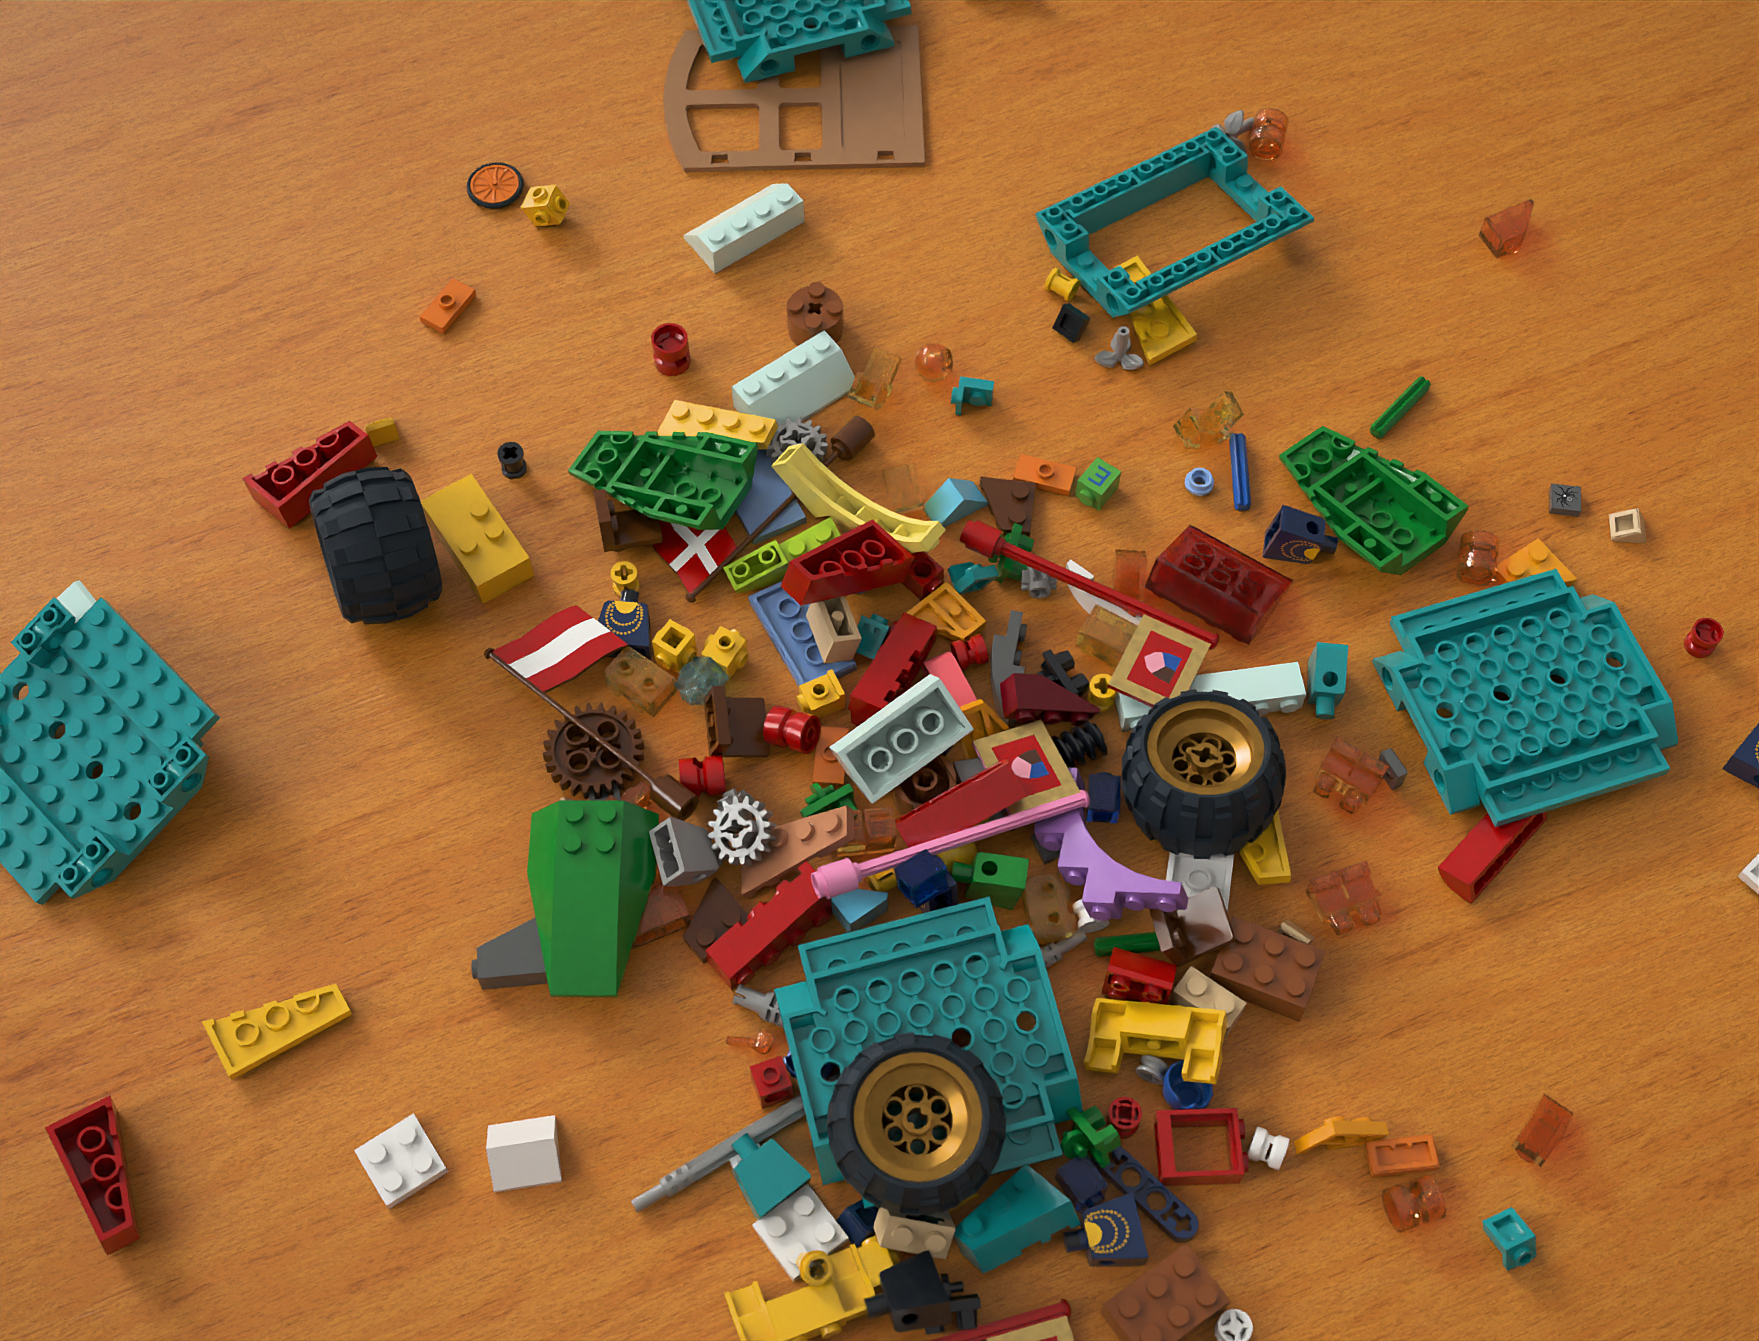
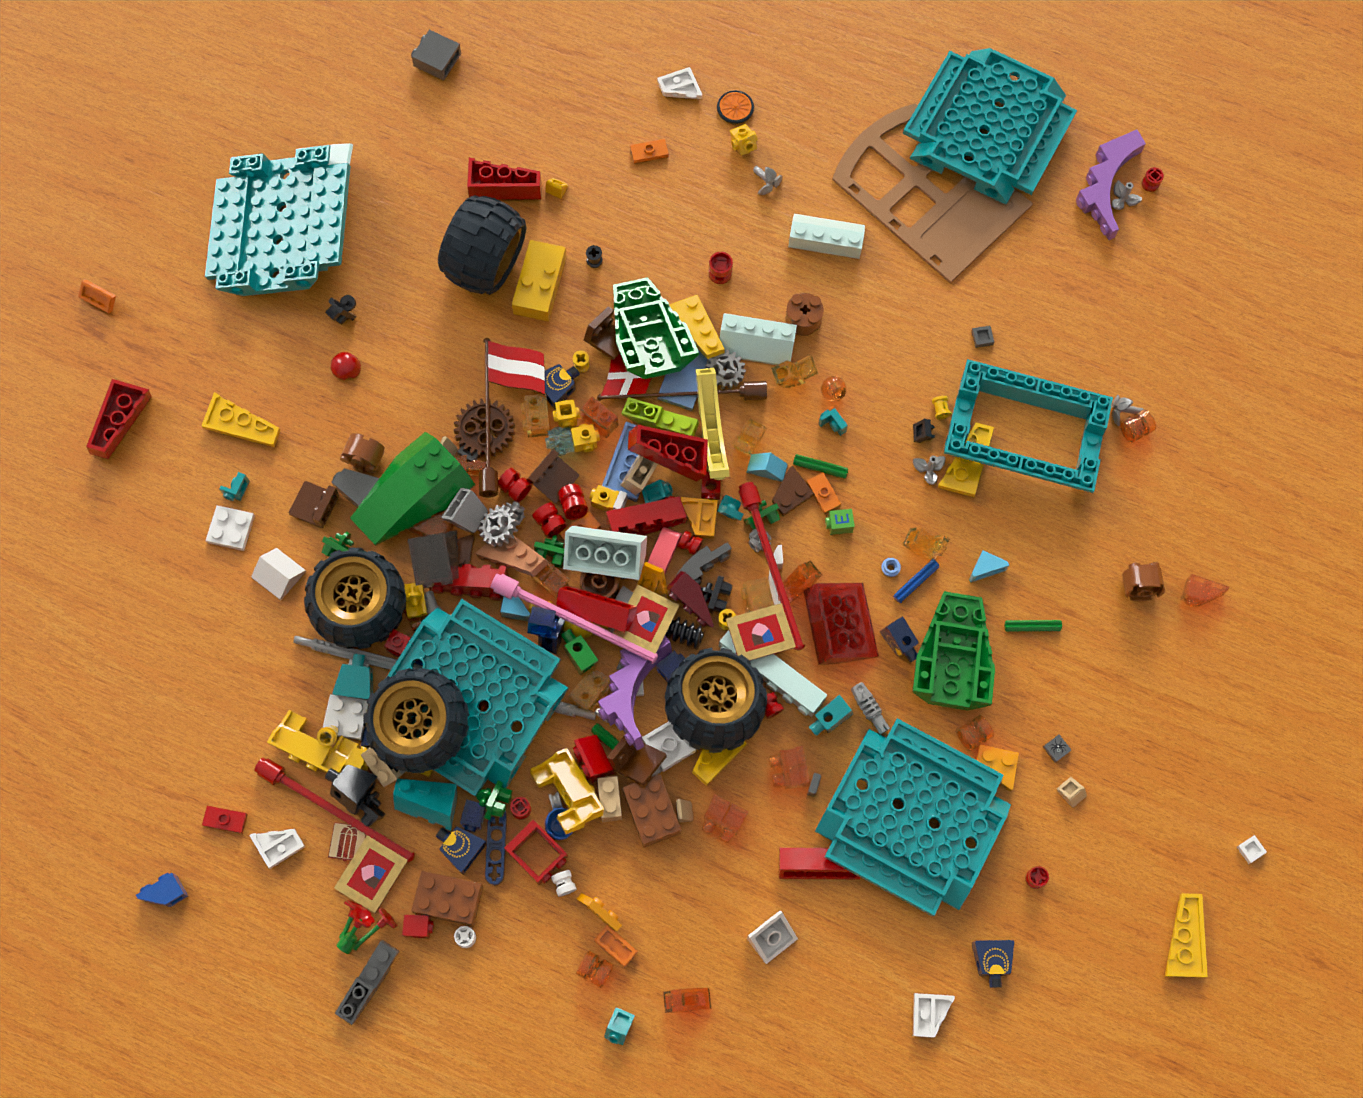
camera: 45 degrees right, 10 degrees up
(71, 410) = (436, 54): none -> dark grey brick
(268, 778) = (340, 310): none -> black hips
(340, 839) = (345, 366): none -> red hair
(359, 1104) = (238, 487): none -> teal bracket
(407, 211) = (680, 84): none -> white wing
(479, 1028) = (314, 504): none -> reddish brown bracket
(480, 909) = (362, 453): none -> dark orange brick
(557, 1052) = (332, 544): none -> green hips
(622, 219) = (769, 177): none -> light grey plant
(645, 1037) = (353, 572): none -> wheel
(712, 935) = (434, 558): none -> clear smoke slope
(720, 609) = (602, 418): none -> clear orange hips
(733, 1011) = (415, 600): none -> yellow hips
(776, 772) = (549, 520): none -> red wheel
(844, 680) = (621, 500): none -> white tile
(1009, 451) = (820, 466): none -> green axle
(1019, 186) = (982, 336): none -> dark grey tile
(1288, 390) = (987, 566): none -> medium azure slope
(1356, 638) = (869, 707): none -> light grey hinge
(1451, 266) = (1143, 581): none -> dark orange brick
(1539, 967) = (772, 937): none -> white slope

